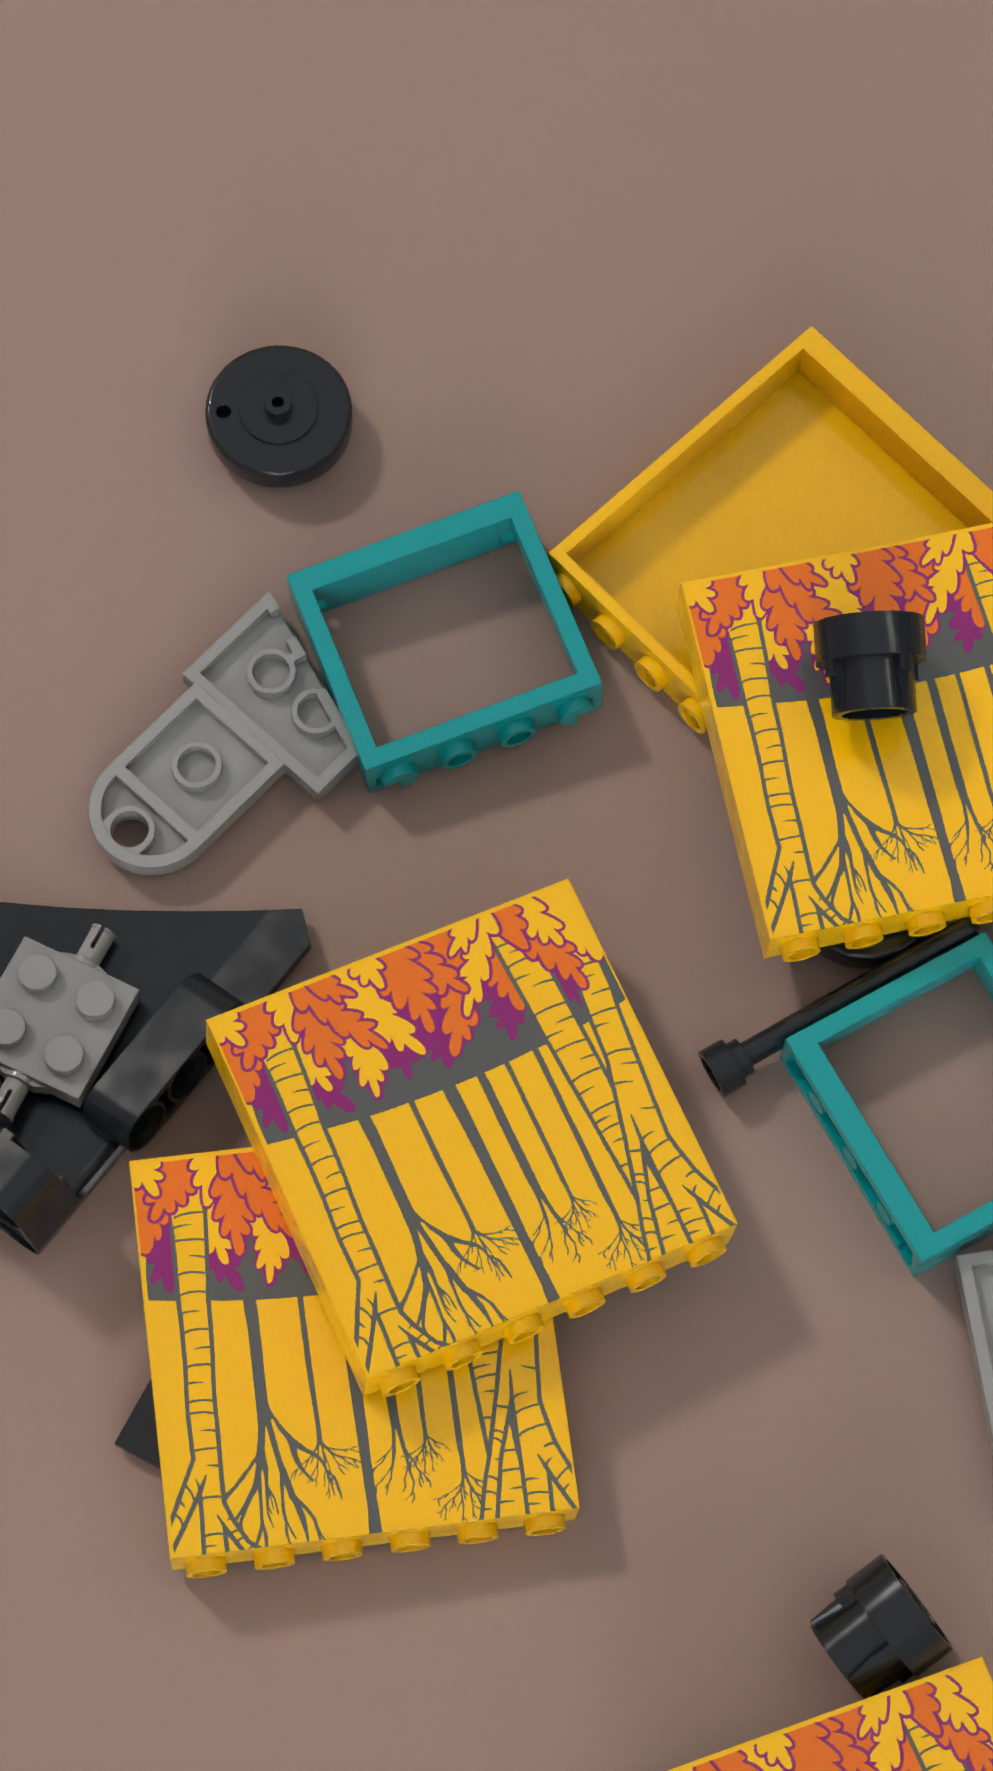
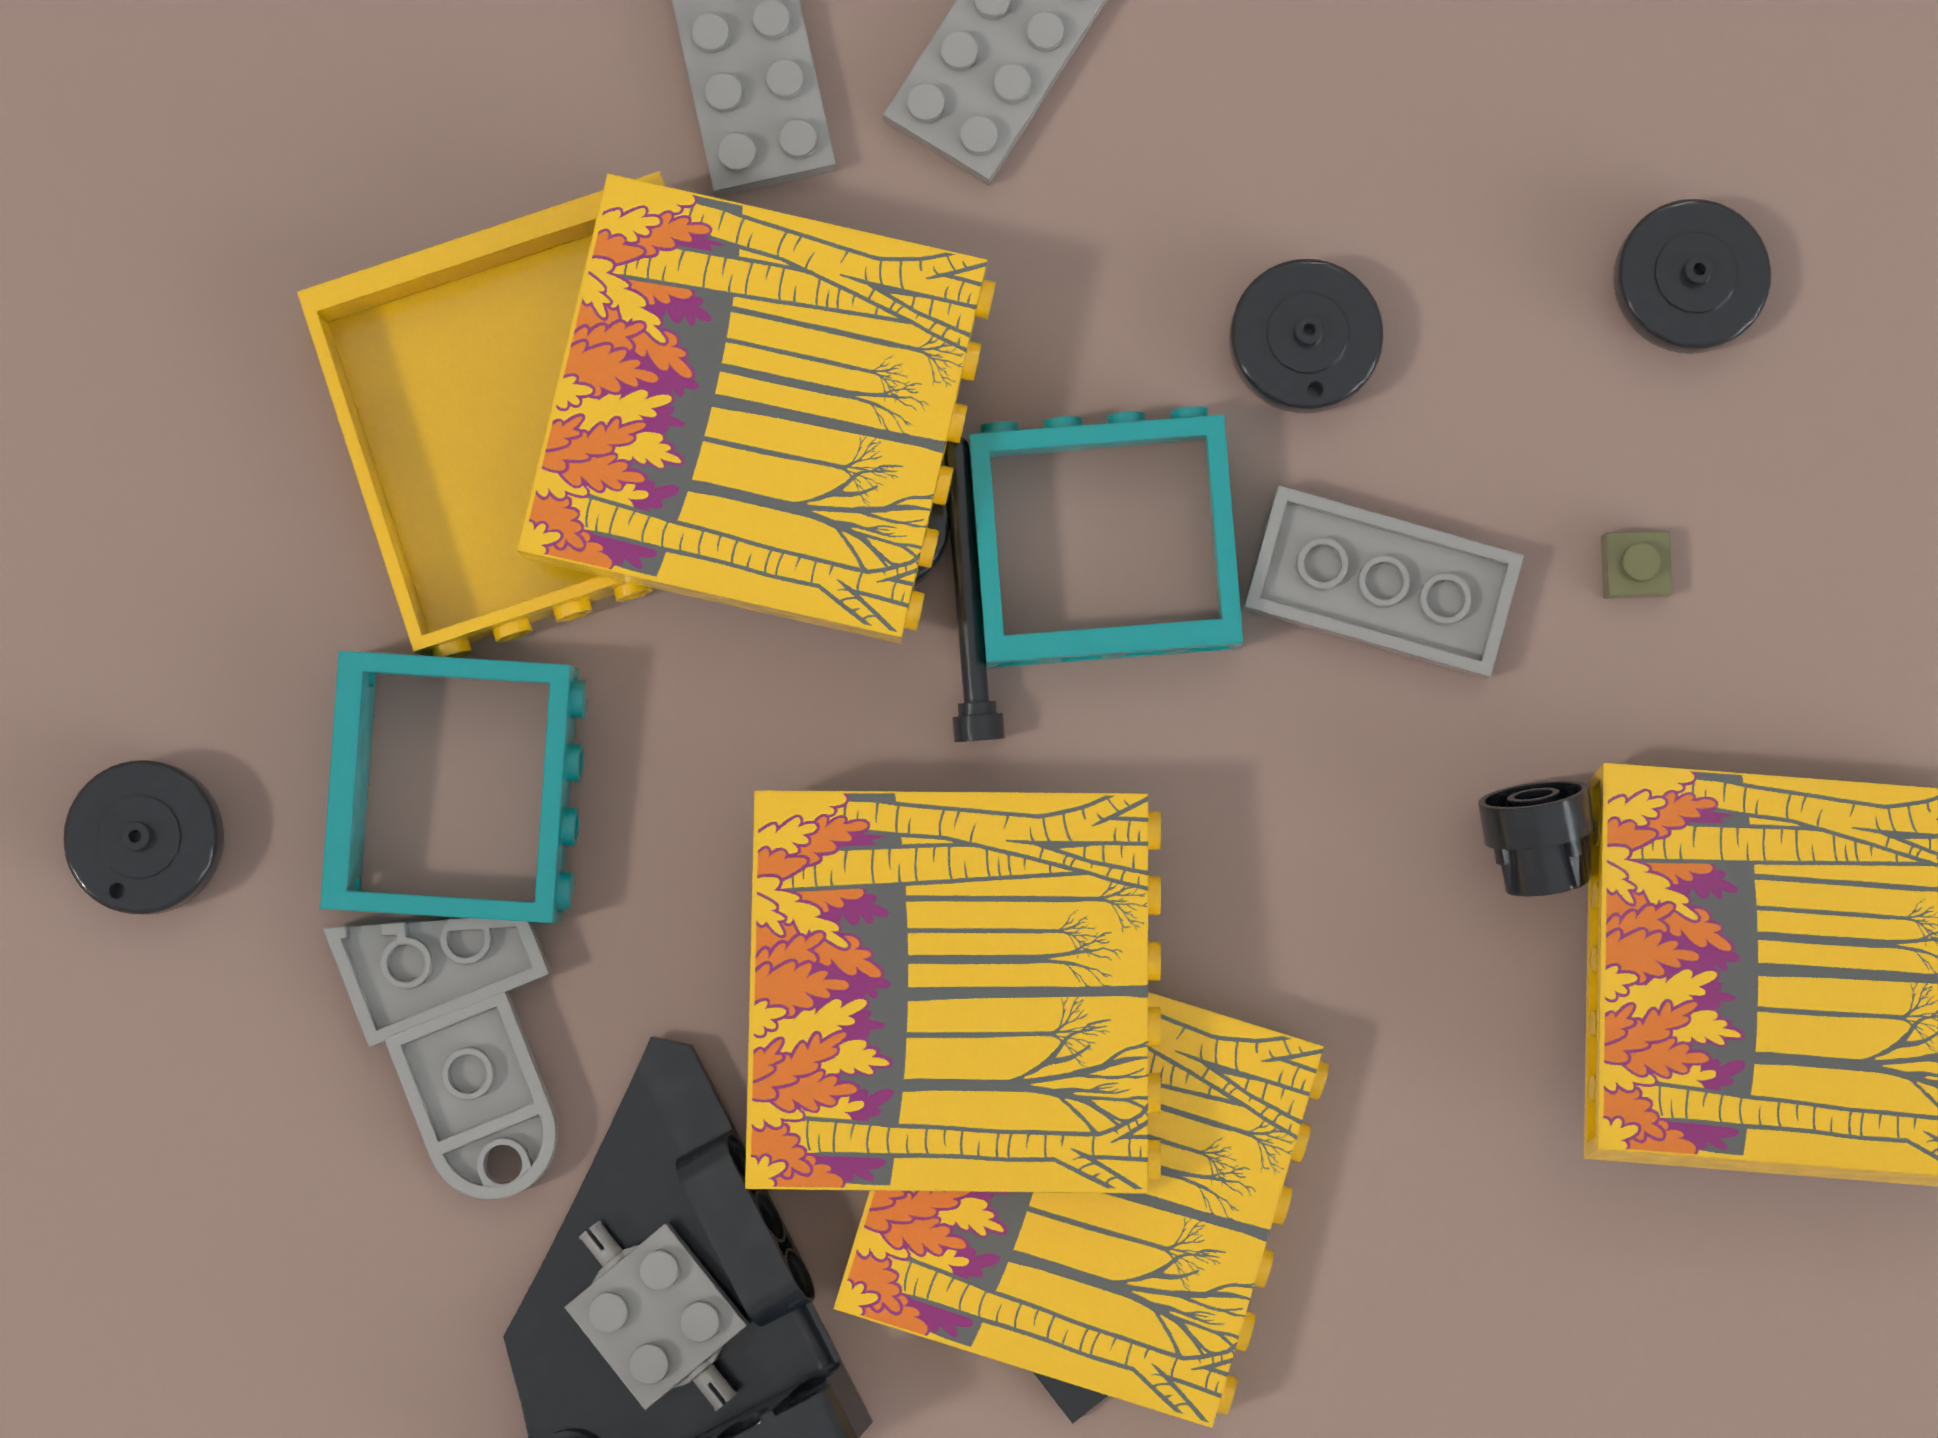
camera: 60 degrees left, 15 degrees up
(871, 662) = (692, 419): black piece -> none

